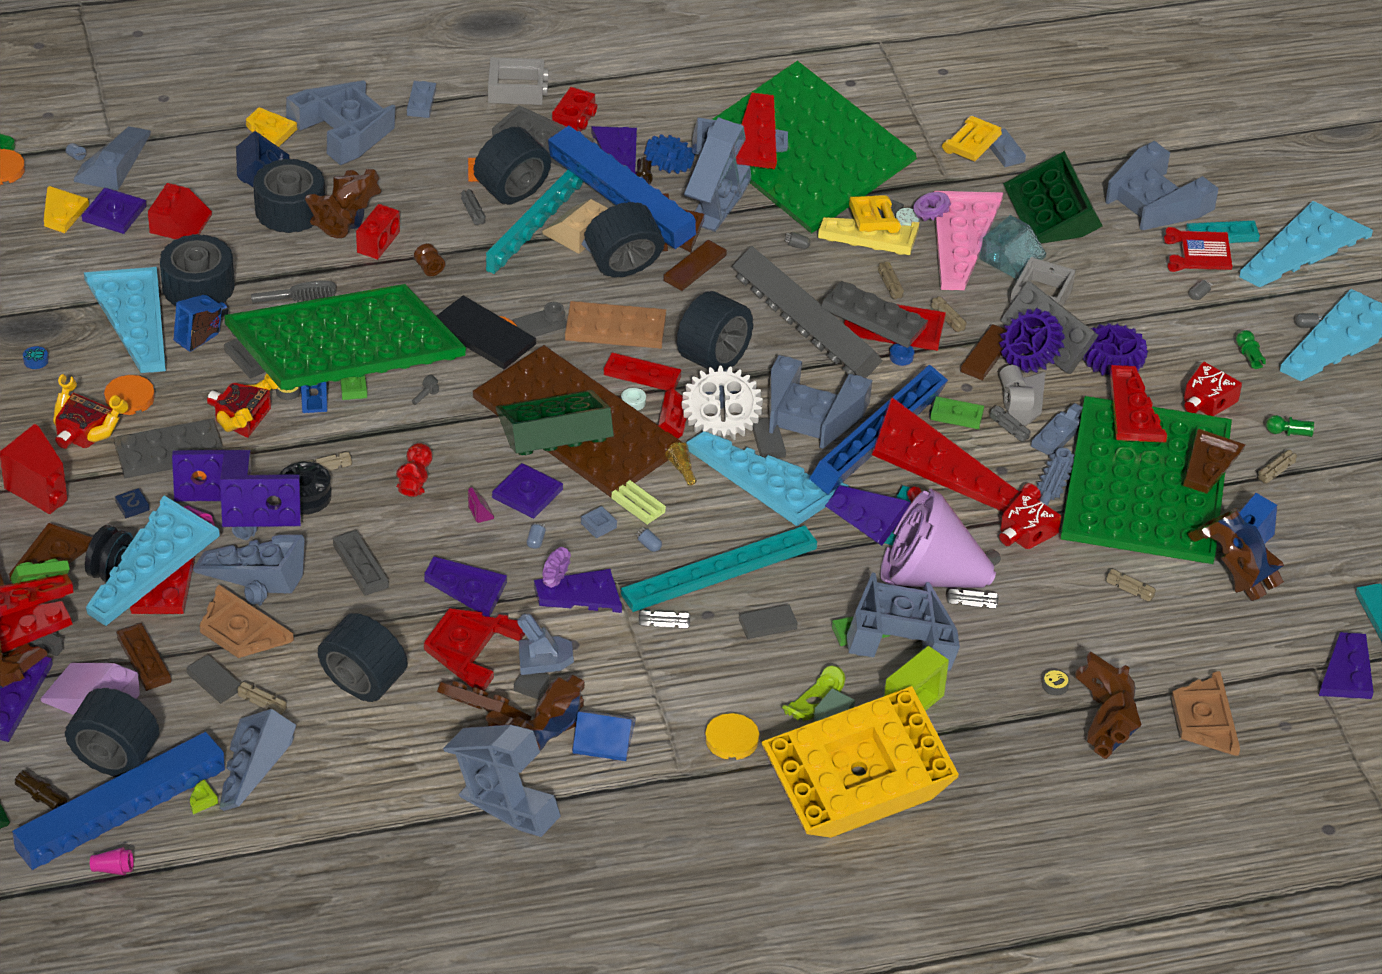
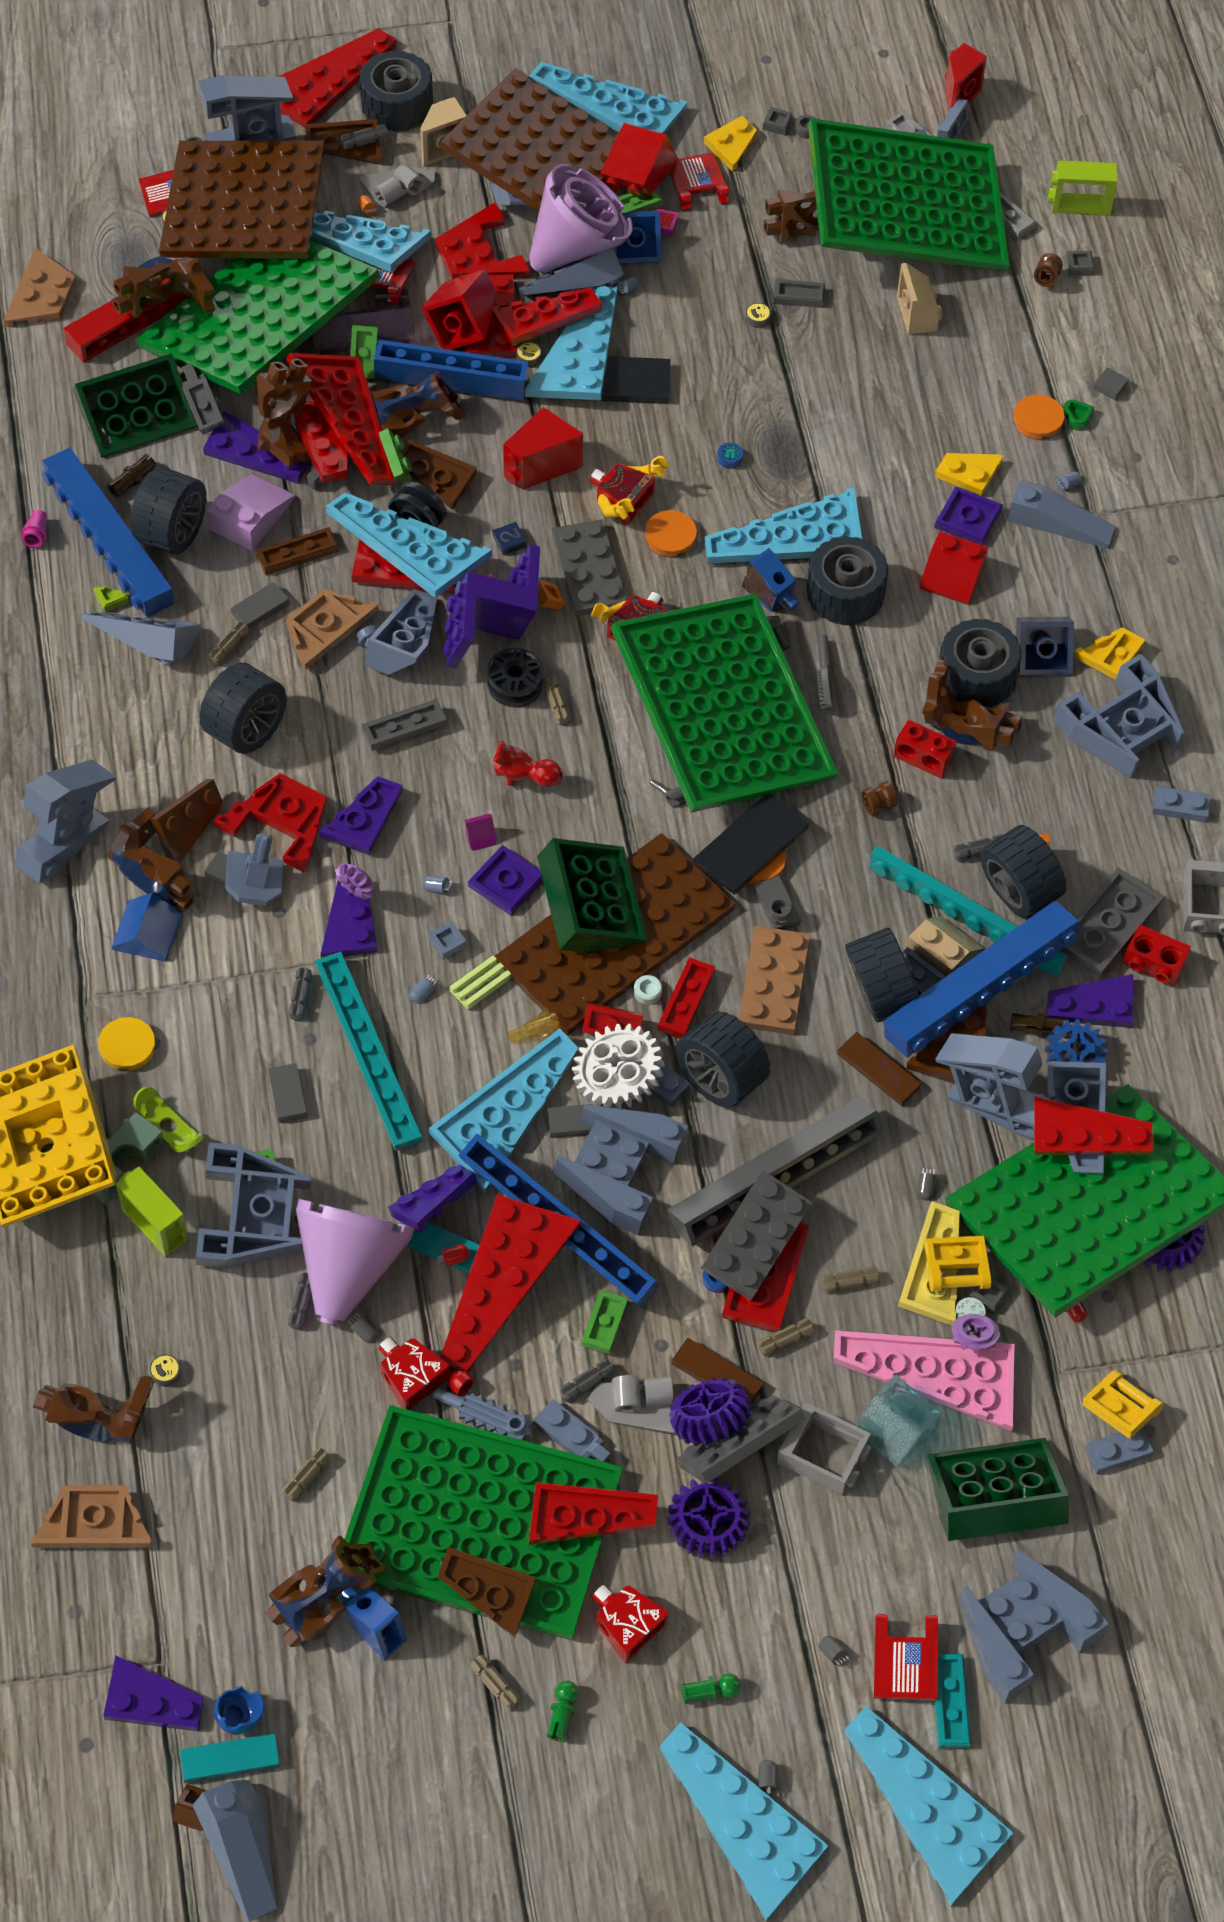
camera: 95 degrees right, 15 degrees up
(1348, 604) = (239, 1710): none -> blue hair

